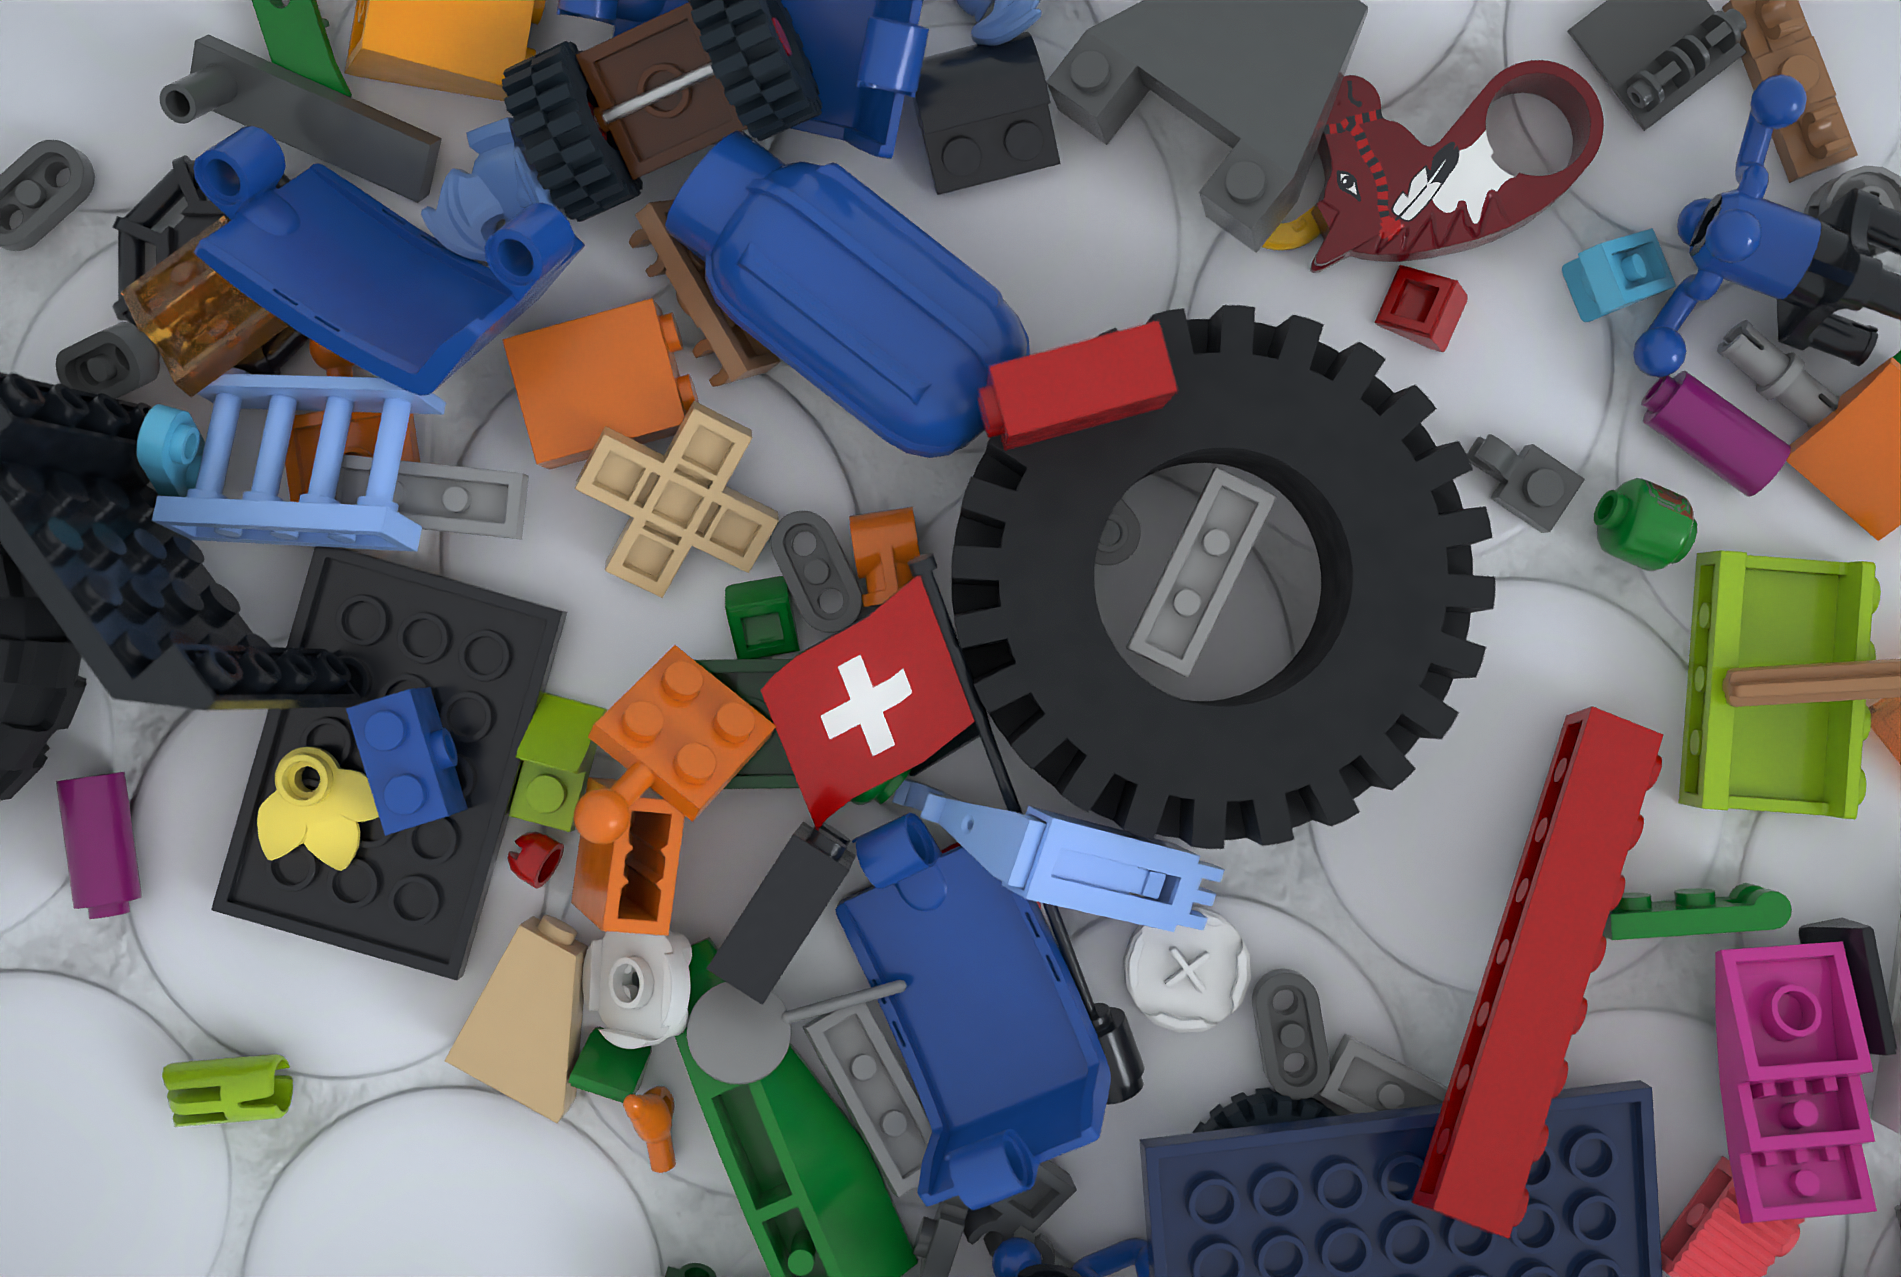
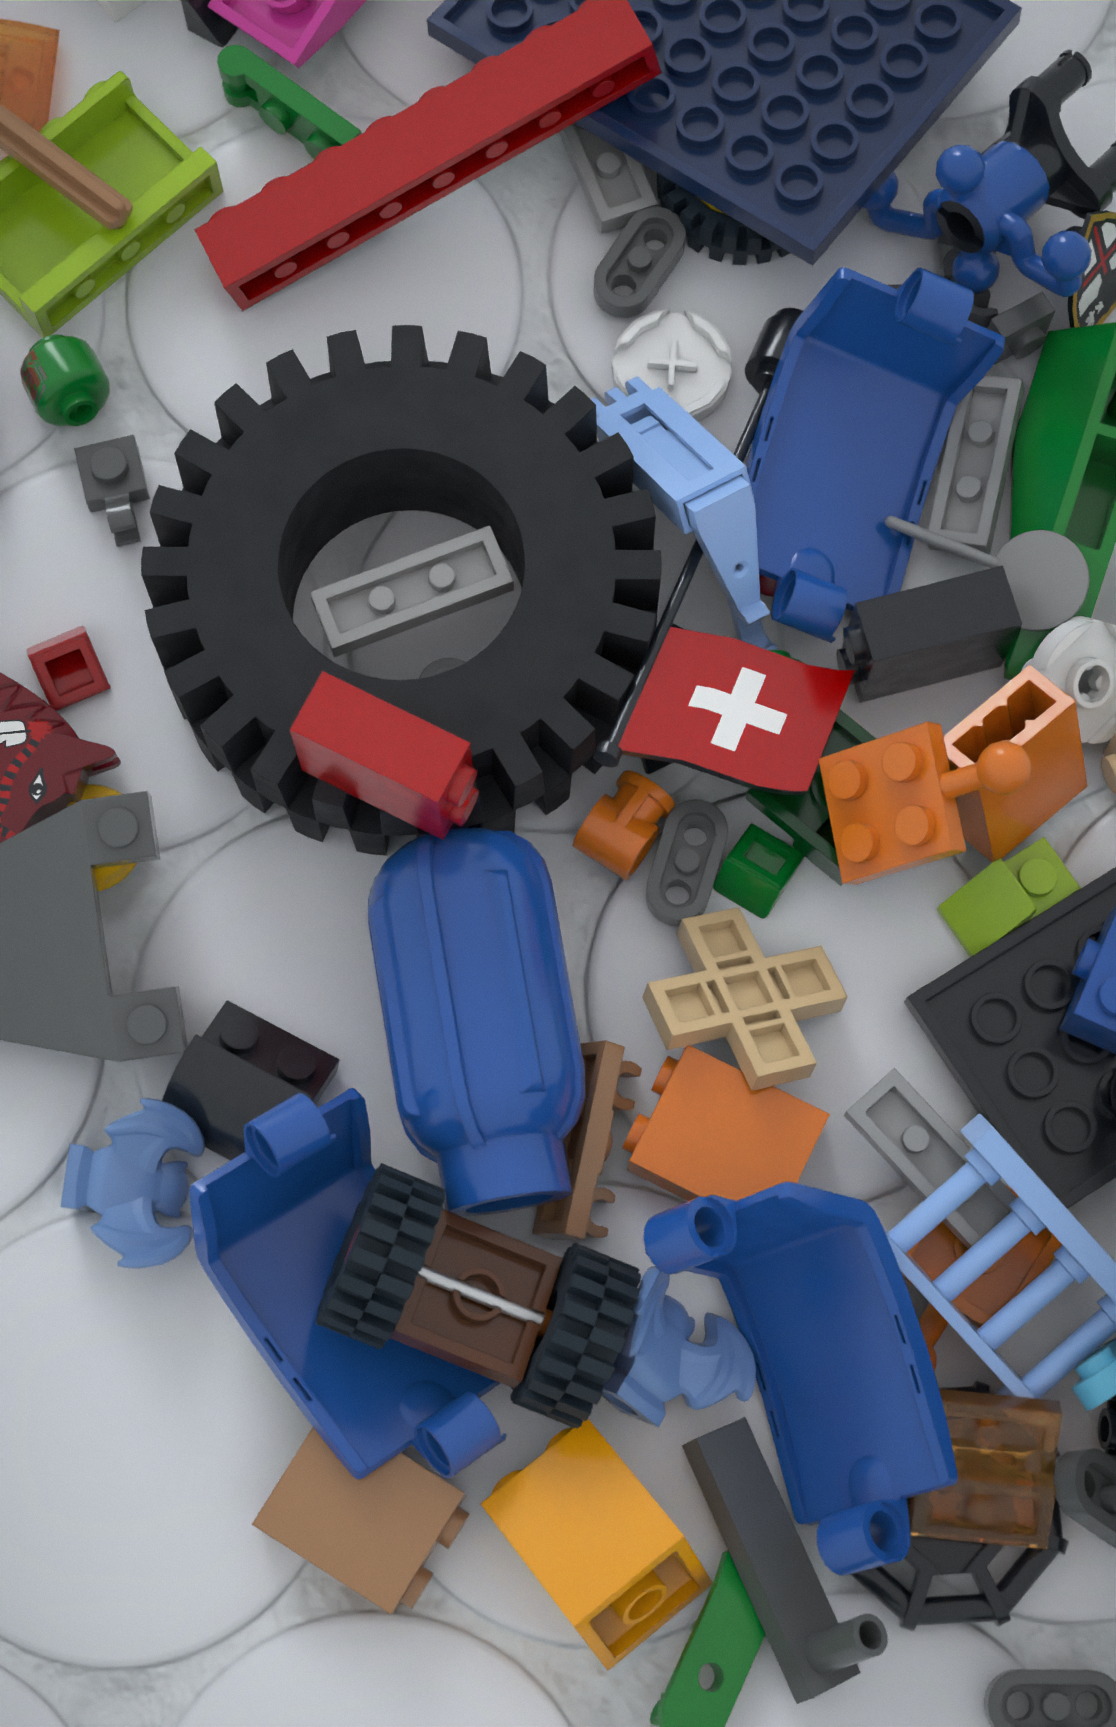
camera: 135 degrees left, 15 degrees down
(537, 858) = (1090, 836): red hinge -> none

